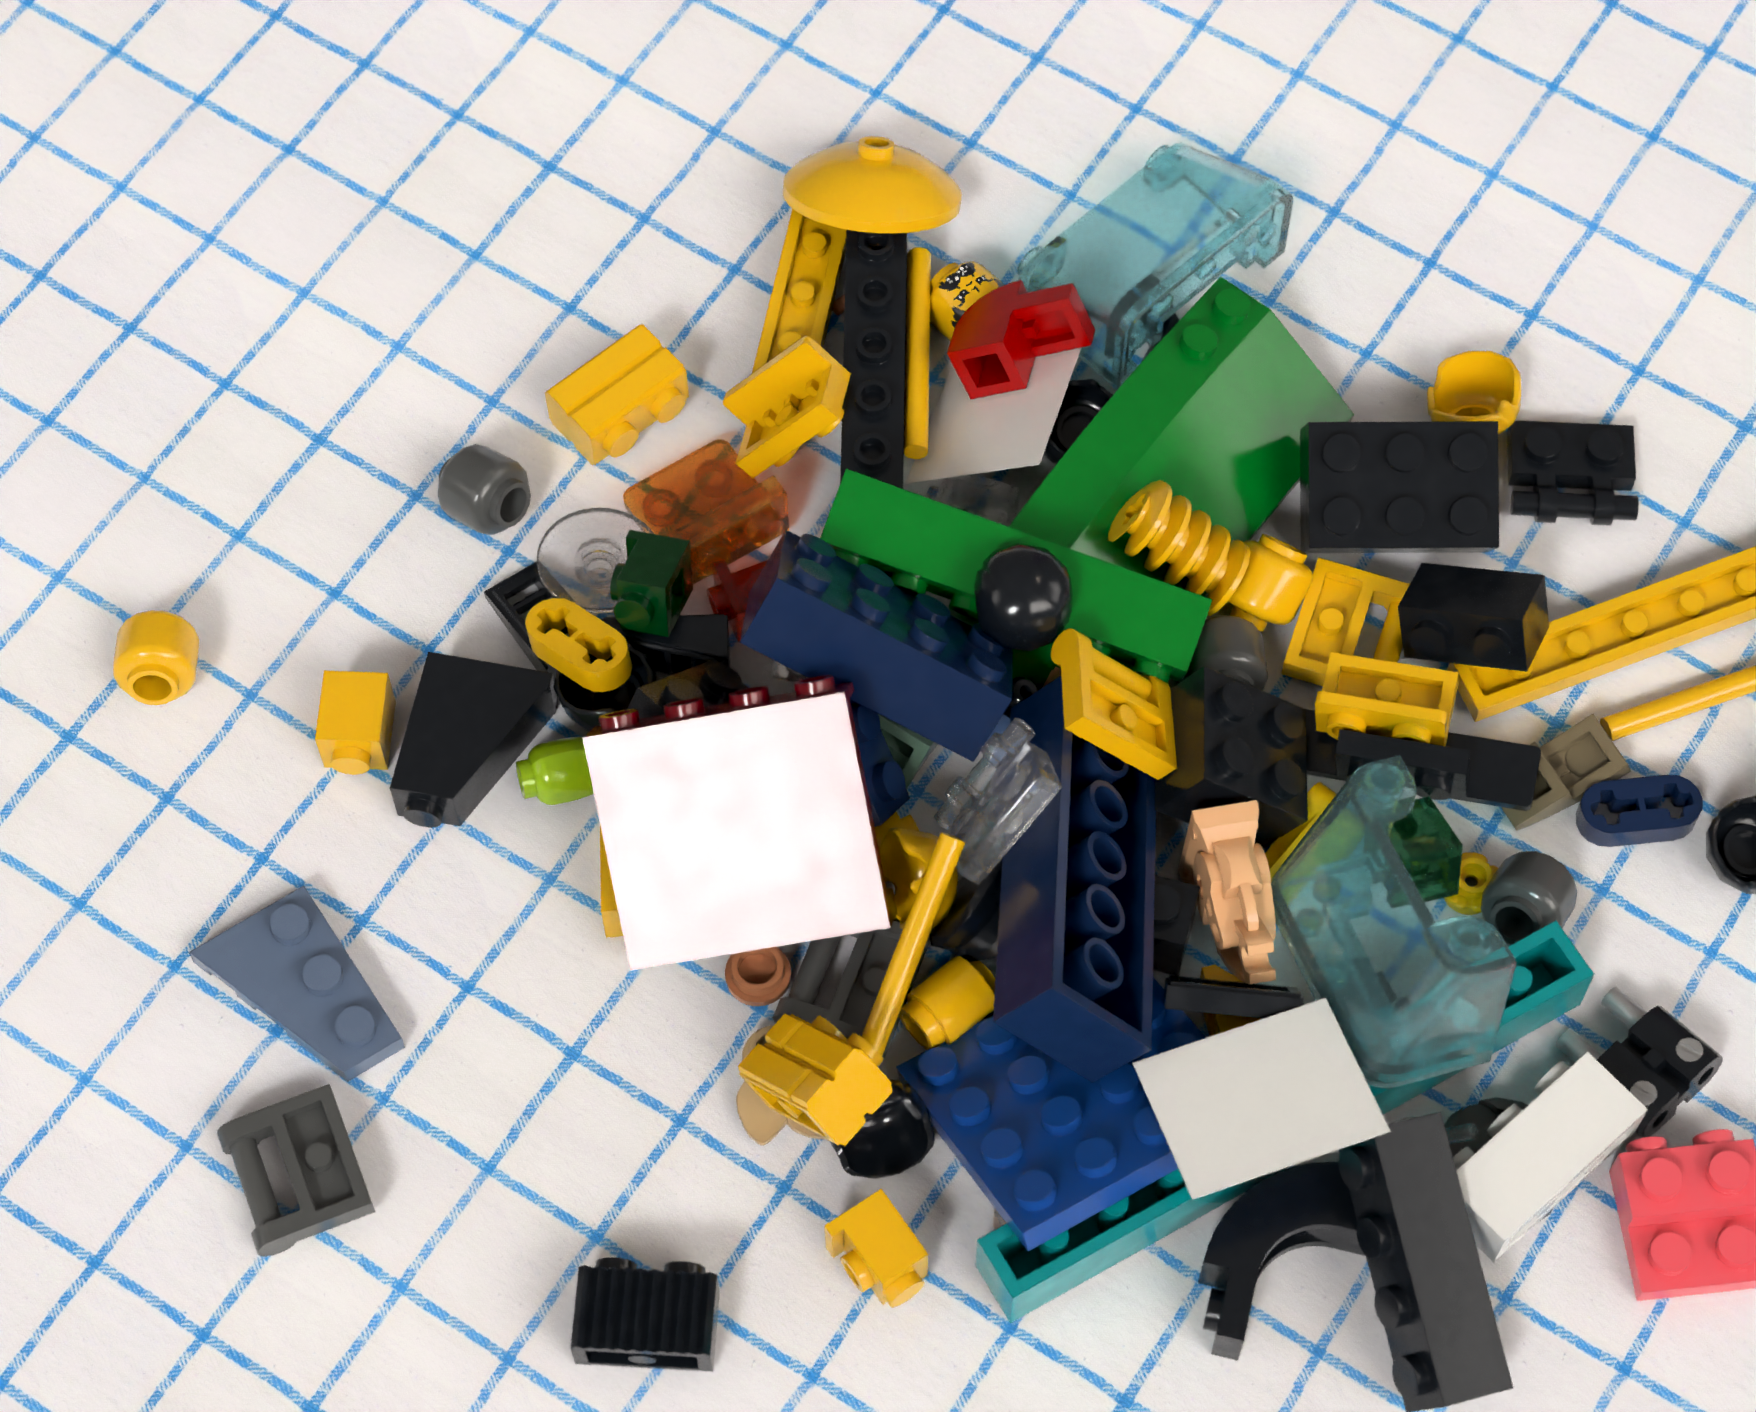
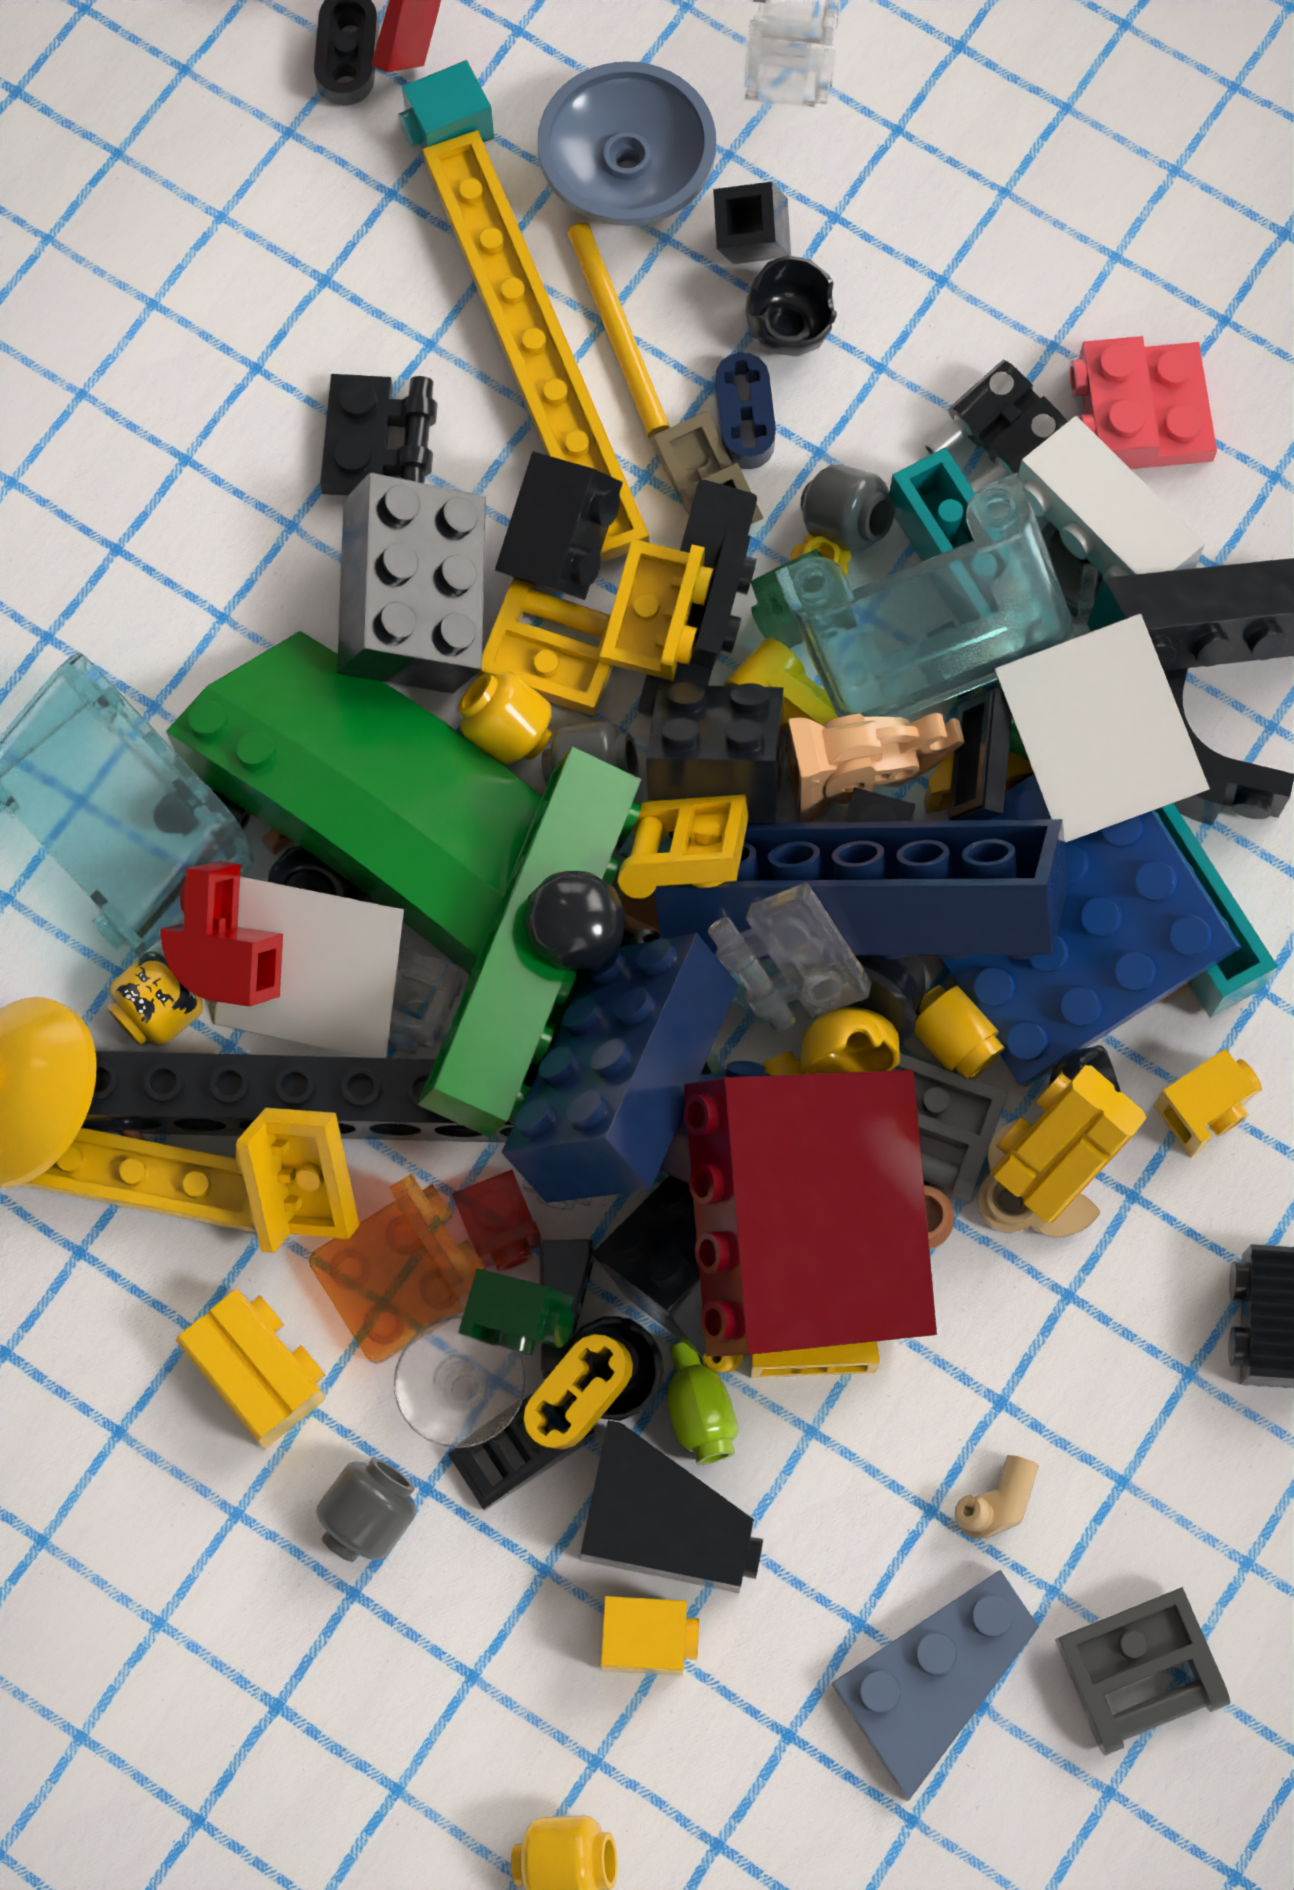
camera: 90 degrees left, 10 degrees up
(464, 1043) = (1000, 1507): none -> tan arm
(912, 940) = (936, 1054): yellow bar -> none
(917, 353) = (229, 1044): yellow bar -> none
(1182, 540) = (494, 781): yellow piece -> none
(1476, 389) = (296, 509): yellow hair -> none

